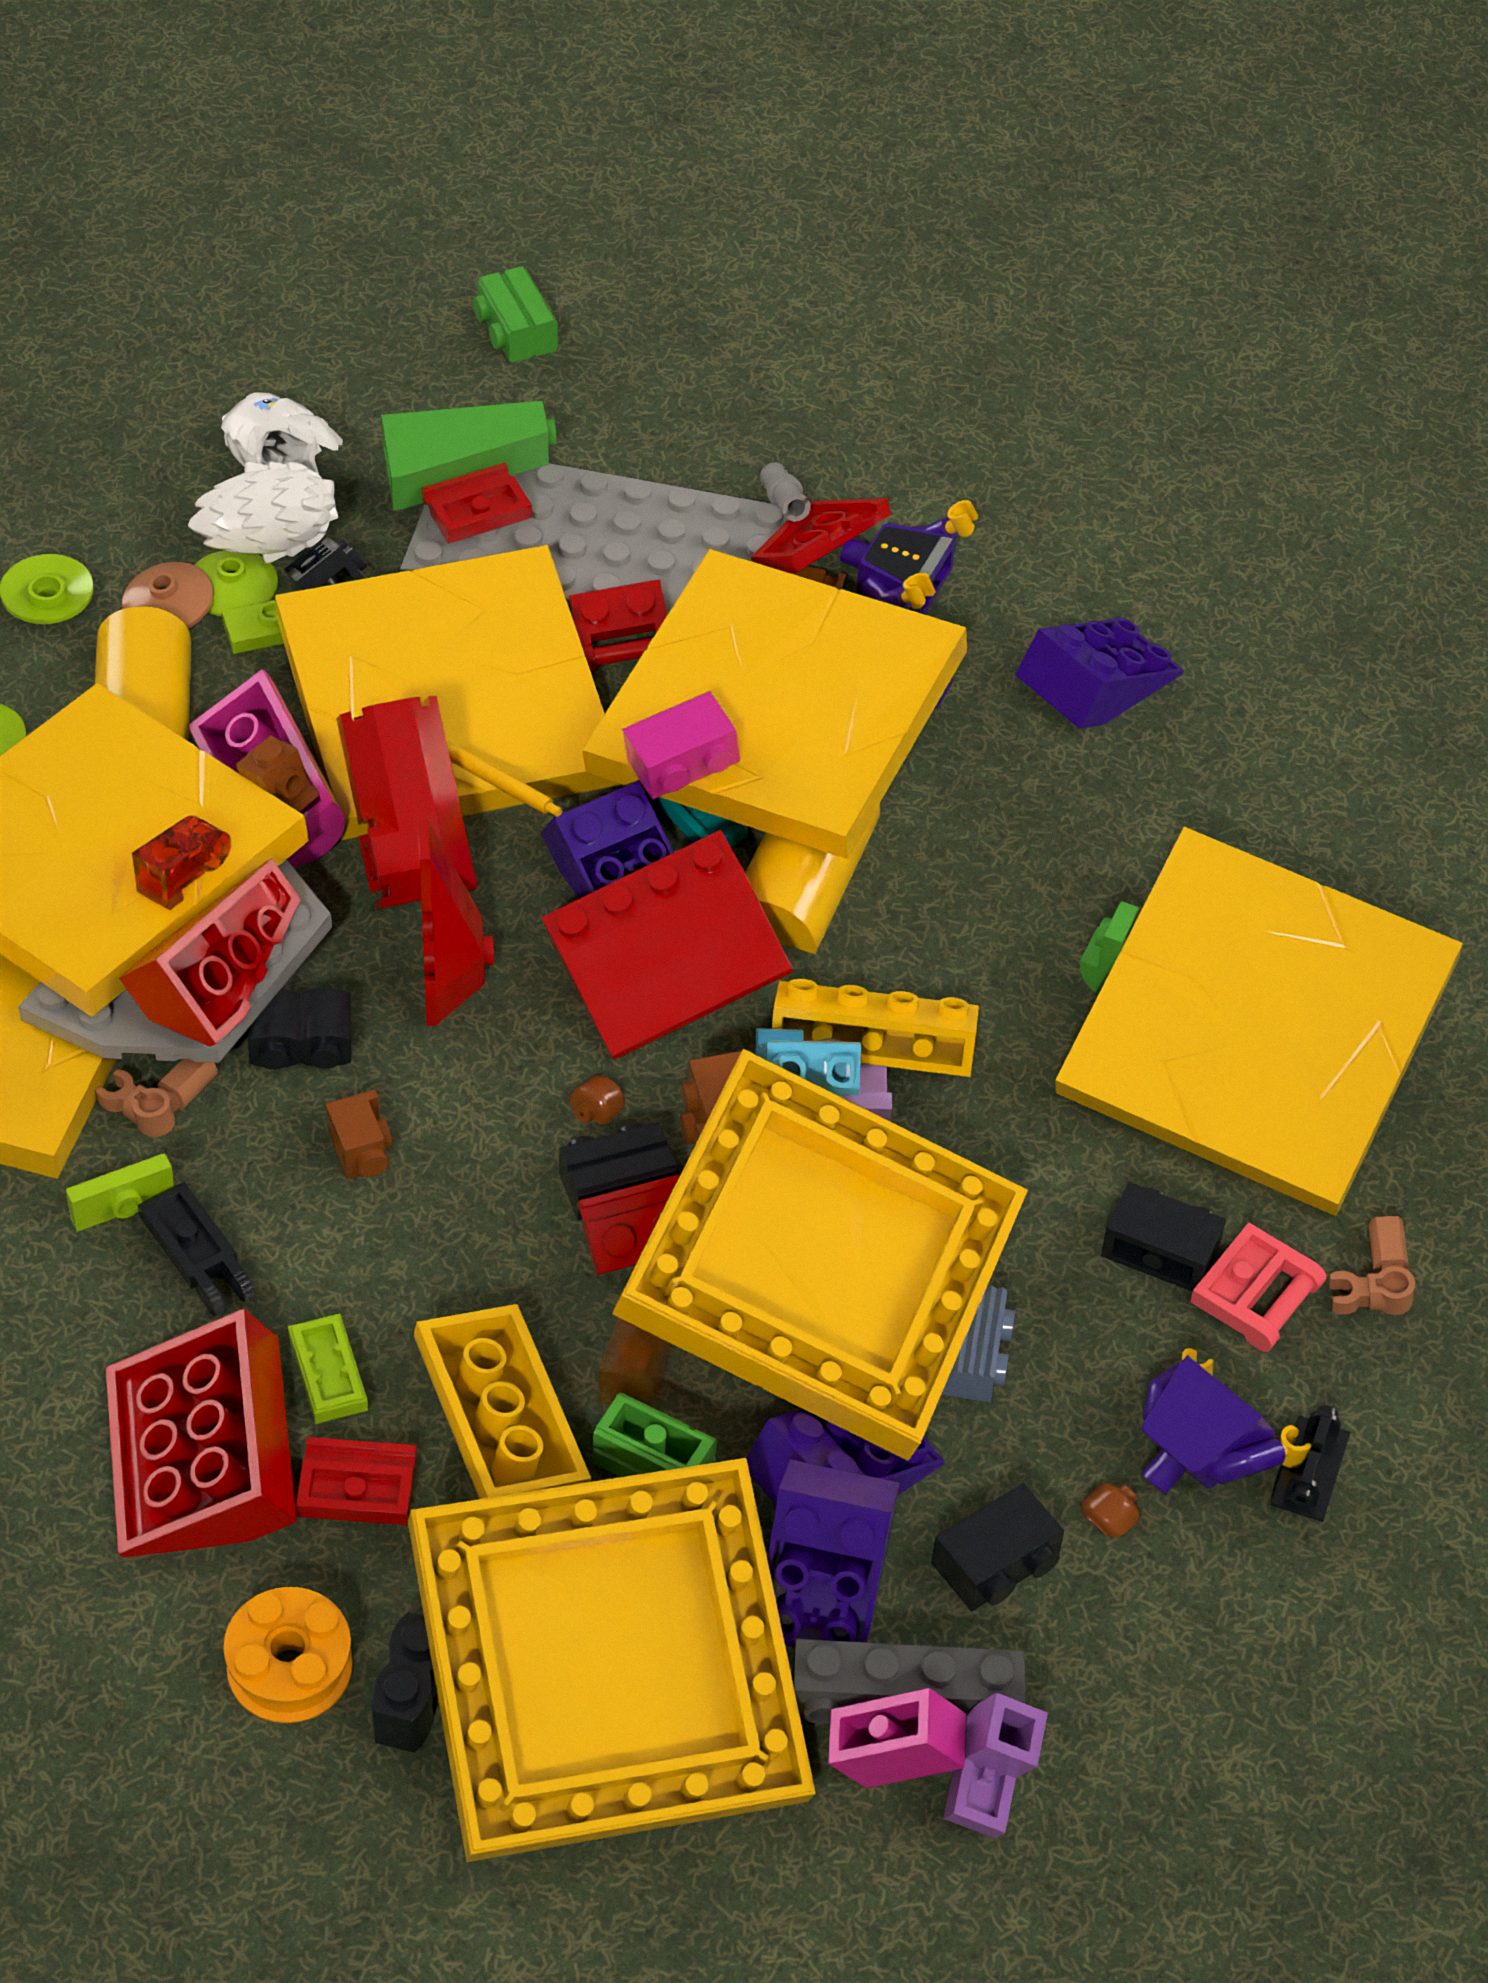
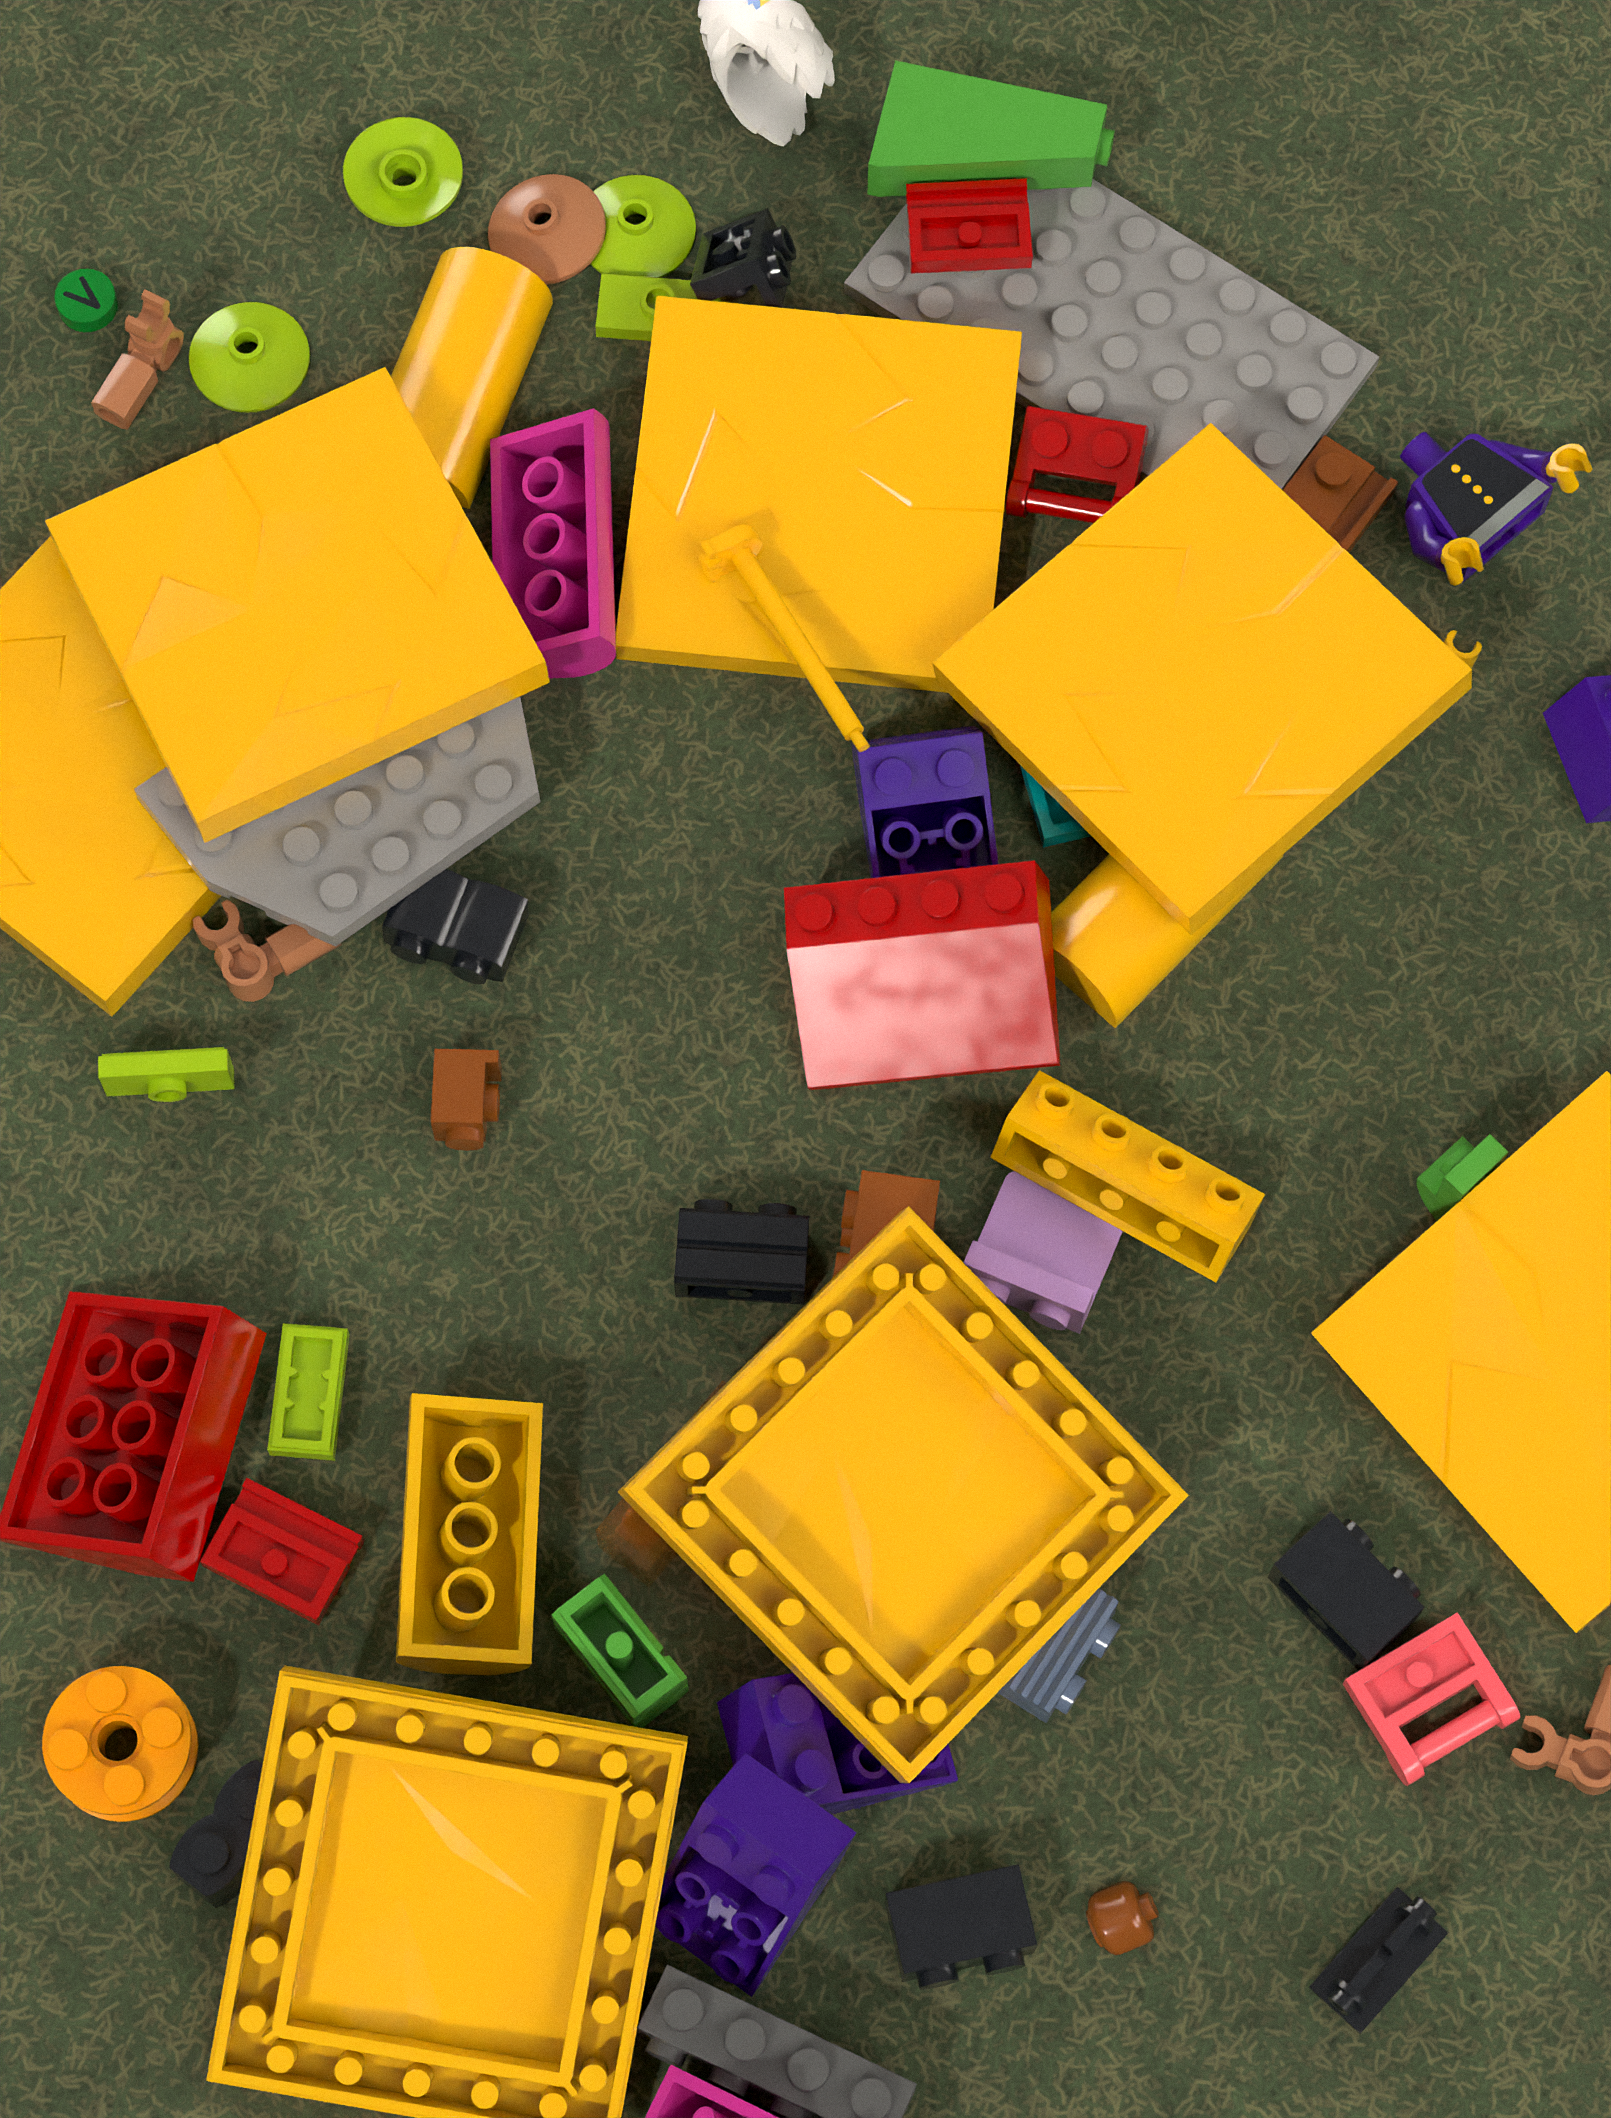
camera: 25 degrees right, 20 degrees up
(178, 859) = (369, 679): clear red leg -> none
(194, 1245) = (223, 1169): black hinge -> none
(210, 965) = (357, 829): red wedge -> none
(267, 511) = (700, 156): white head -> none
(280, 772) = (541, 587): dark orange brick -> none
(401, 776) = (686, 667): red brick -> none
(451, 932) = (667, 869): red wedge -> none
(597, 1100) = (765, 1141): dark orange piece -> none
(622, 1222) = (721, 1331): red plate -> none
(681, 745) = (1042, 717): dark pink brick -> none
(785, 491) = (1371, 332): light grey pin -> none
(820, 532) = (1380, 412): red wing -> none
(823, 1062) = (1004, 1230): medium azure hips -> none
(1209, 1430) = (1269, 1872): dark purple torso -> none

